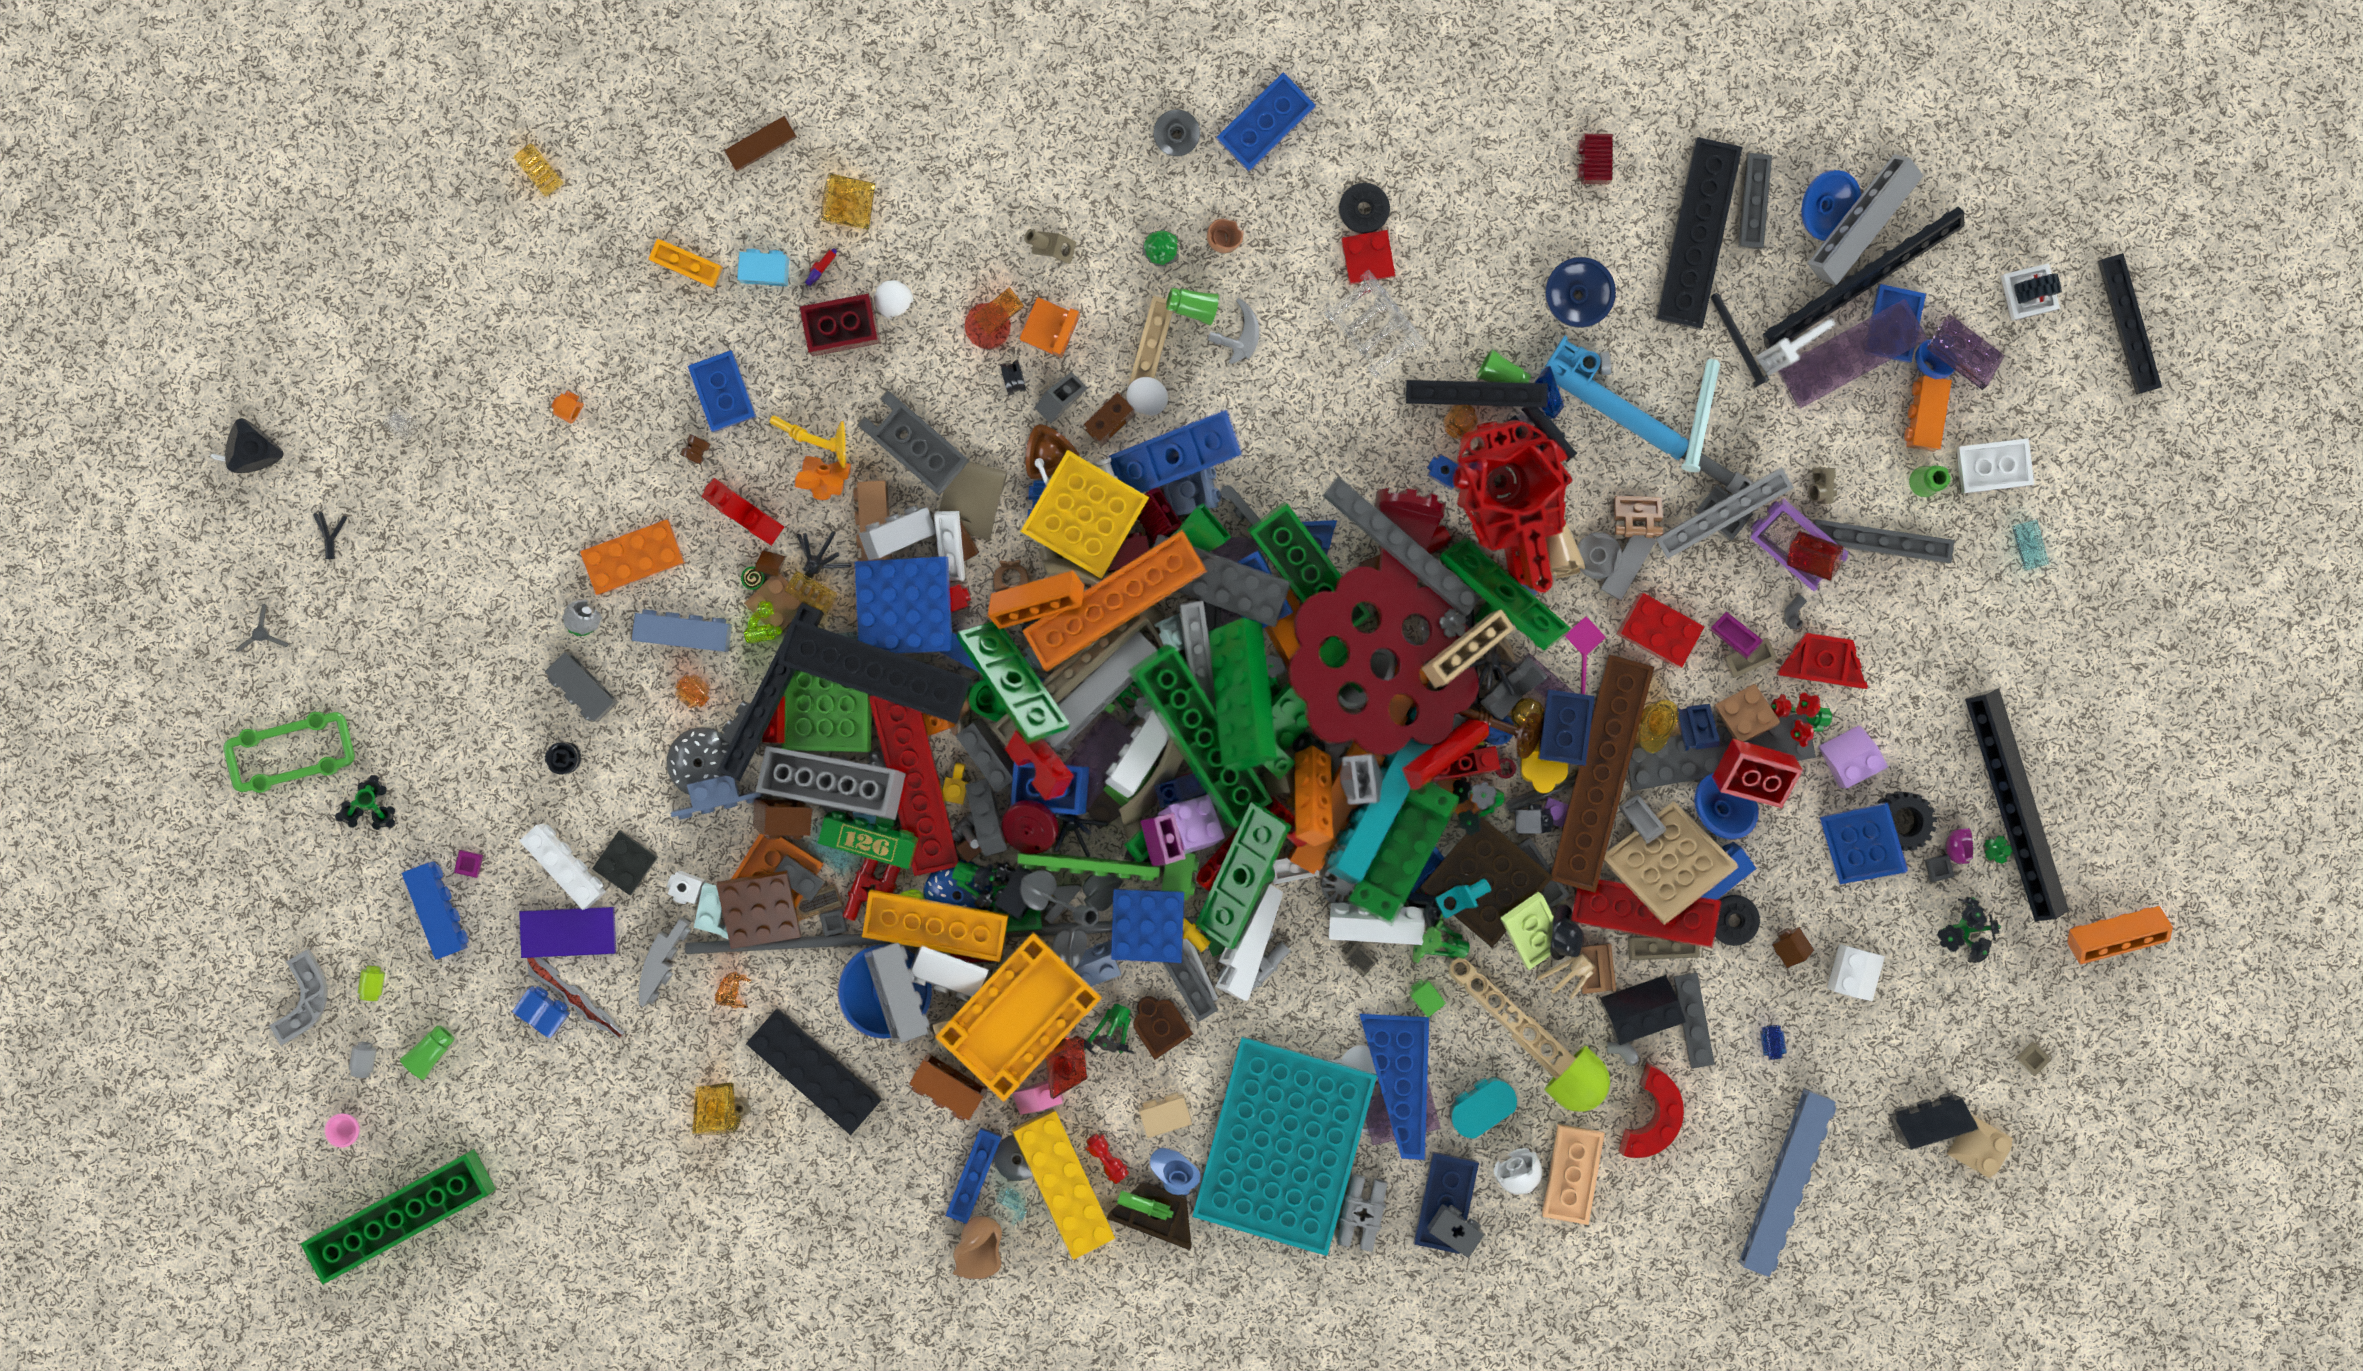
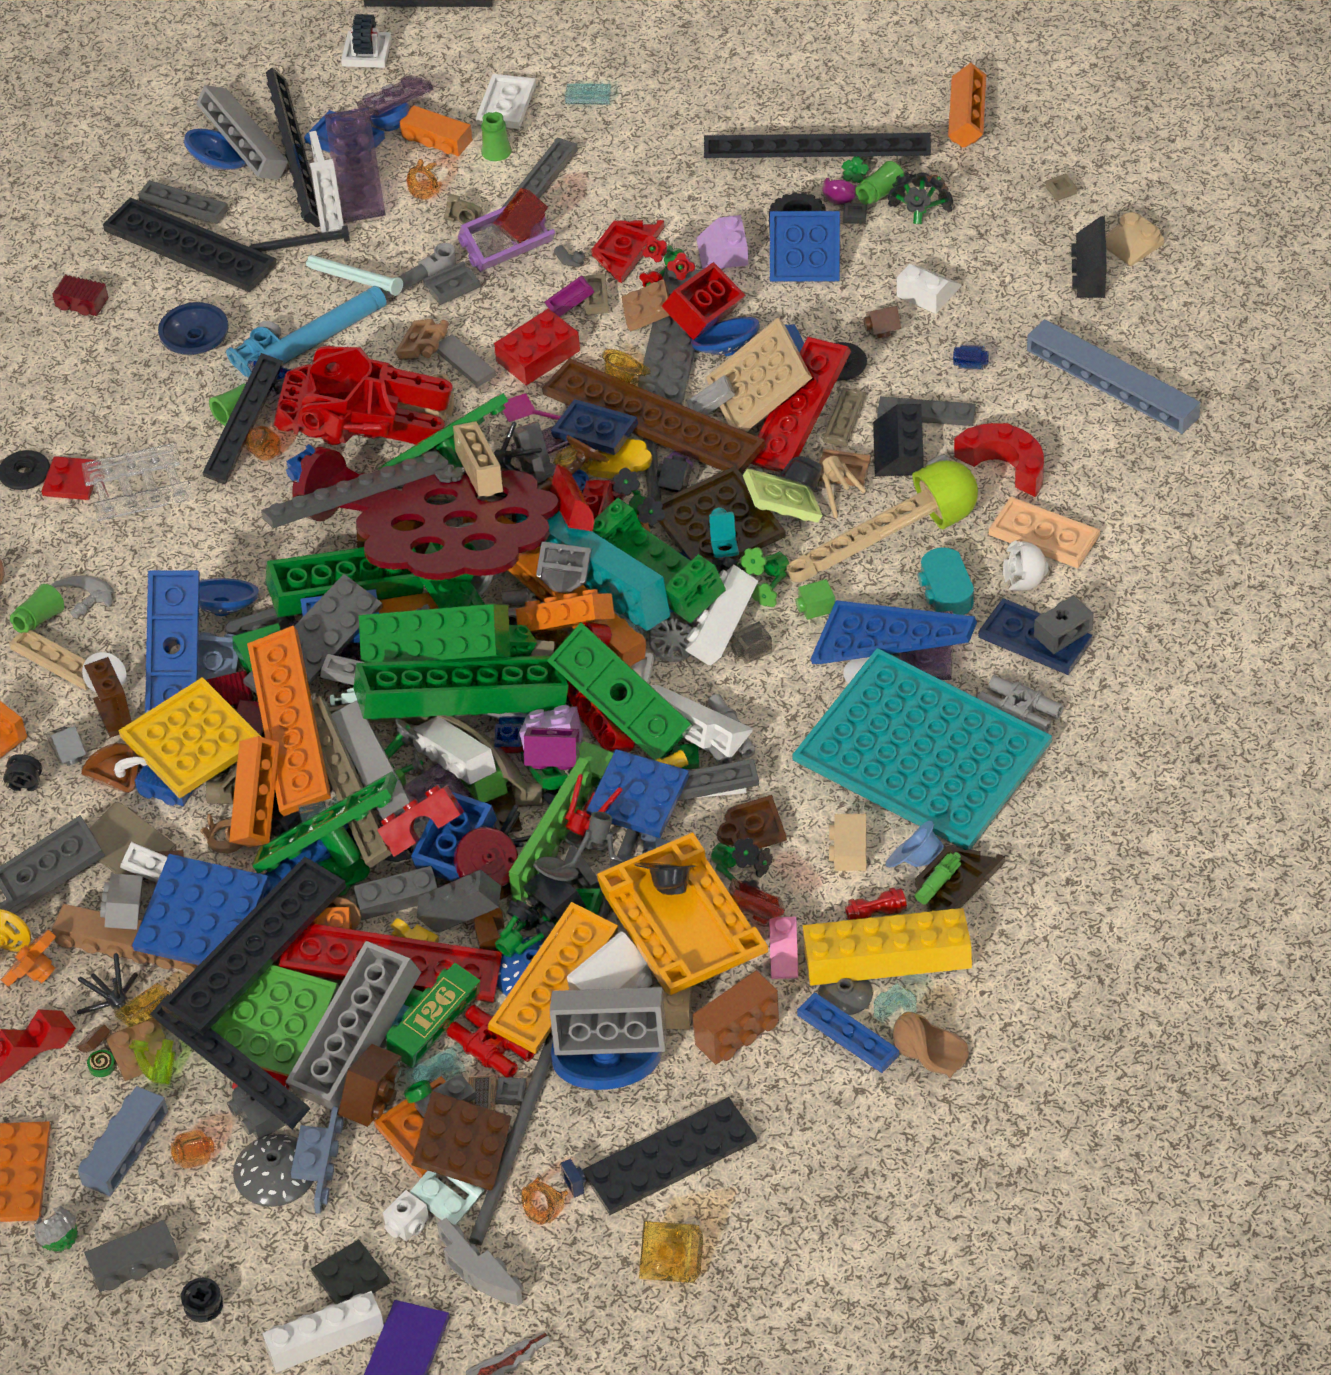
camera: 65 degrees left, 40 degrees down
(763, 1006) = (573, 1177): none -> dark blue plate
(794, 855) = (417, 1091): none -> green tile
(964, 830) = (462, 934): dark grey piece -> none
(1049, 993) = (668, 878): none -> black piece
(1104, 886) = (579, 821): none -> red plant
(1273, 461) = (226, 595): none -> blue dish
(1600, 554) = (453, 368): light grey tile -> none
(1698, 727) = (643, 337): dark blue plate -> none
(1724, 512) = (450, 273): light grey plate -> none
(1851, 431) = (426, 188): none -> clear orange piece
(1981, 886) = (879, 183): none -> bright green plant

